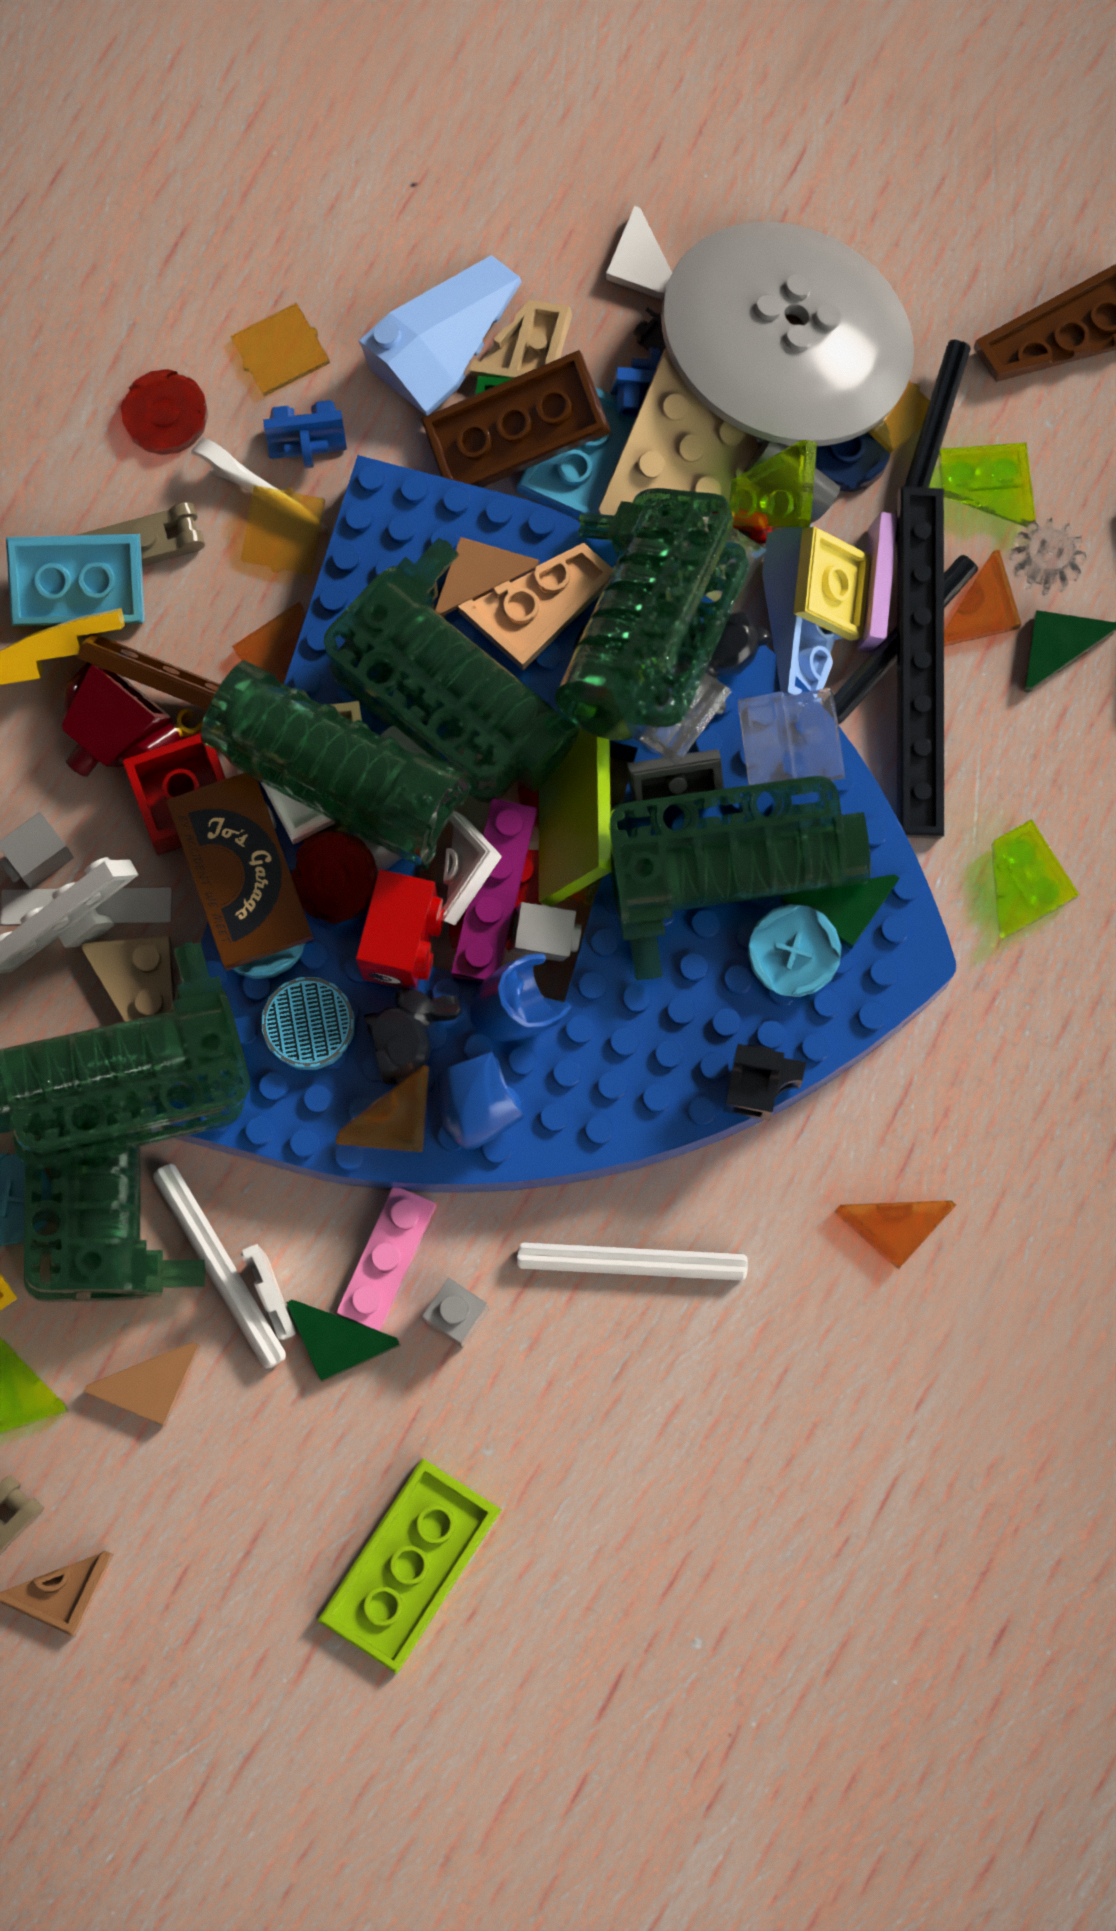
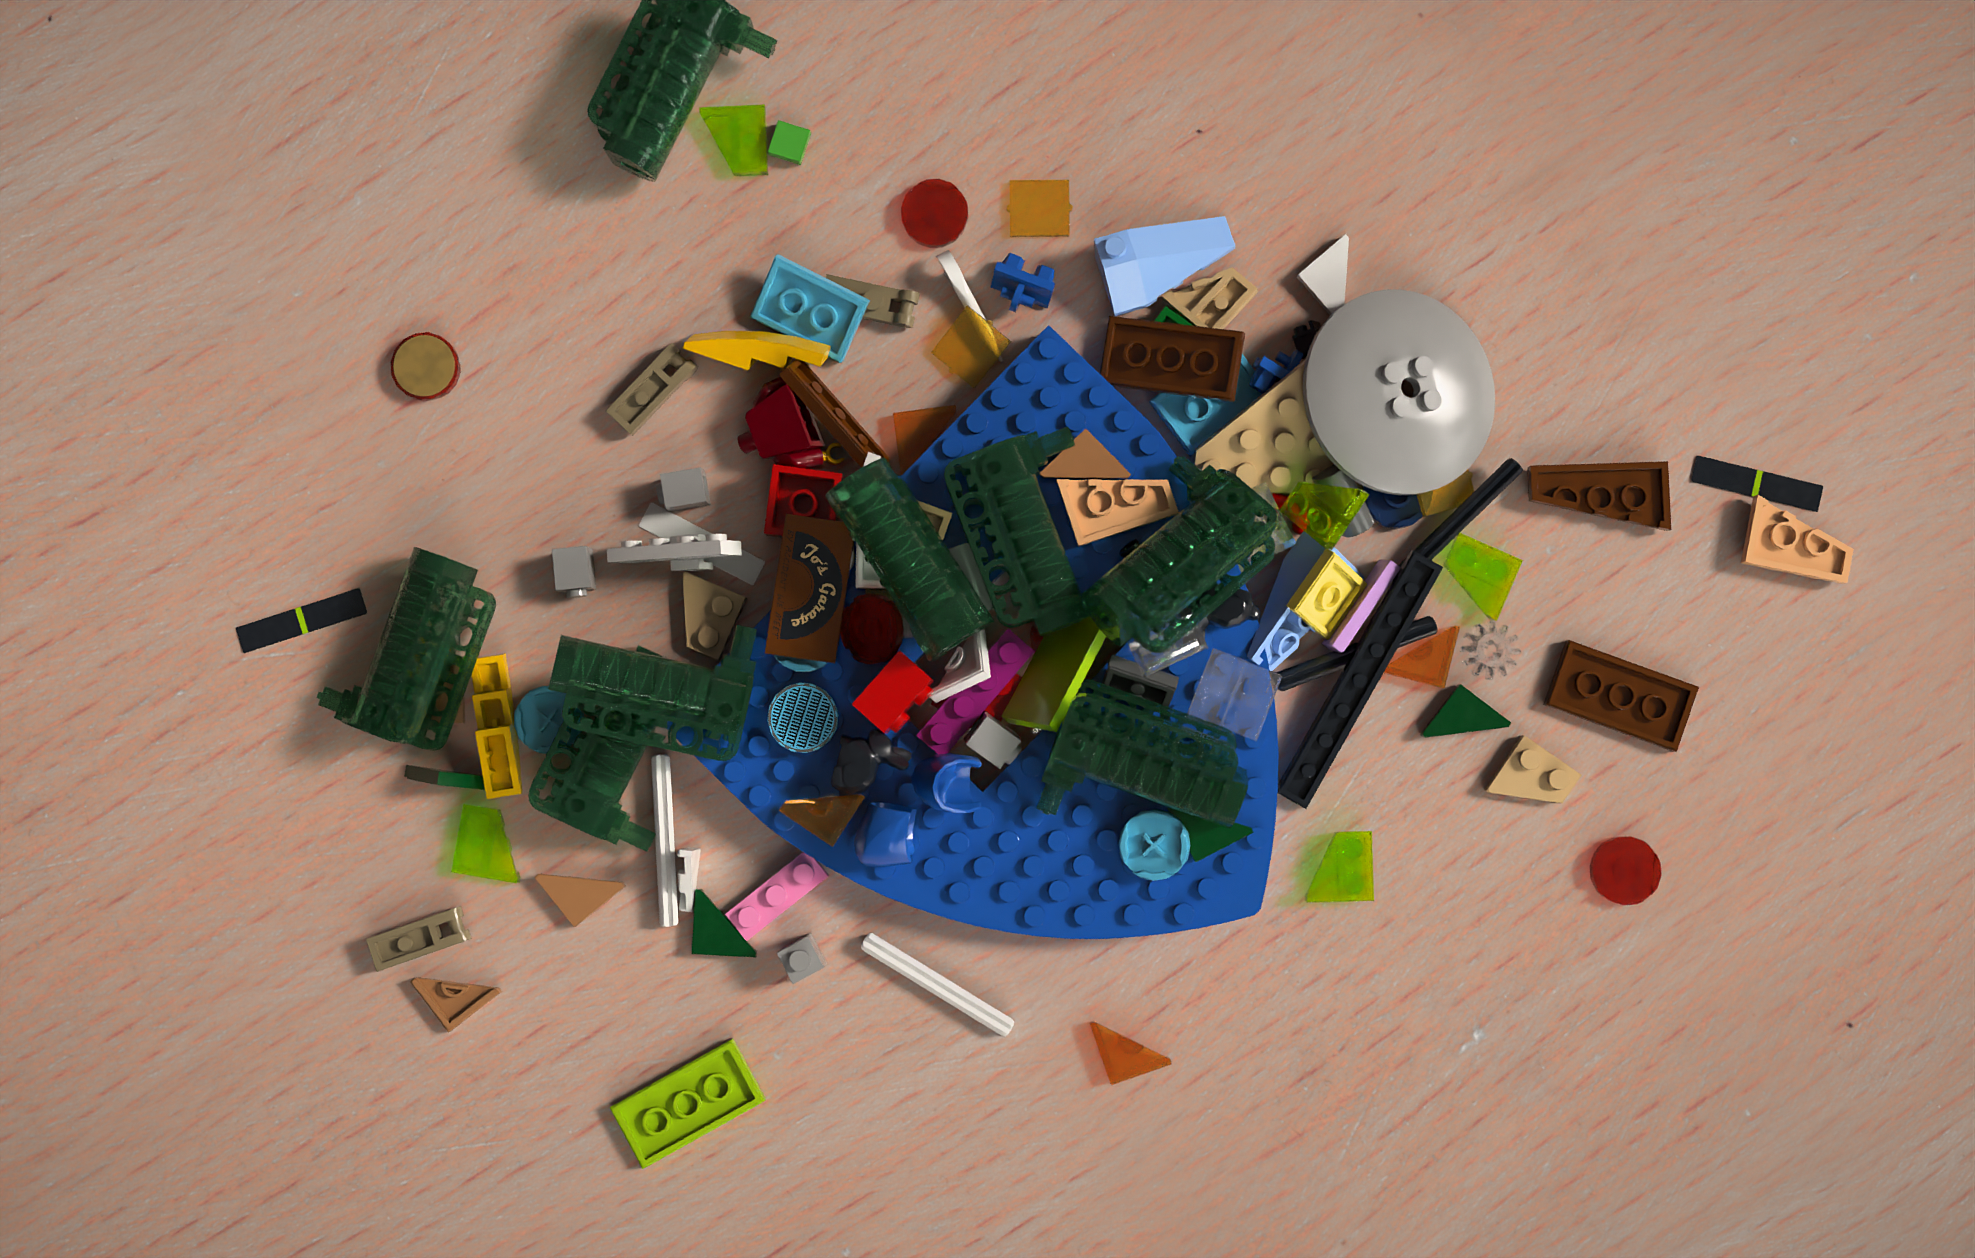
camera: 30 degrees right, 10 degrees up
(758, 1079) = (1081, 921): black brick -> none

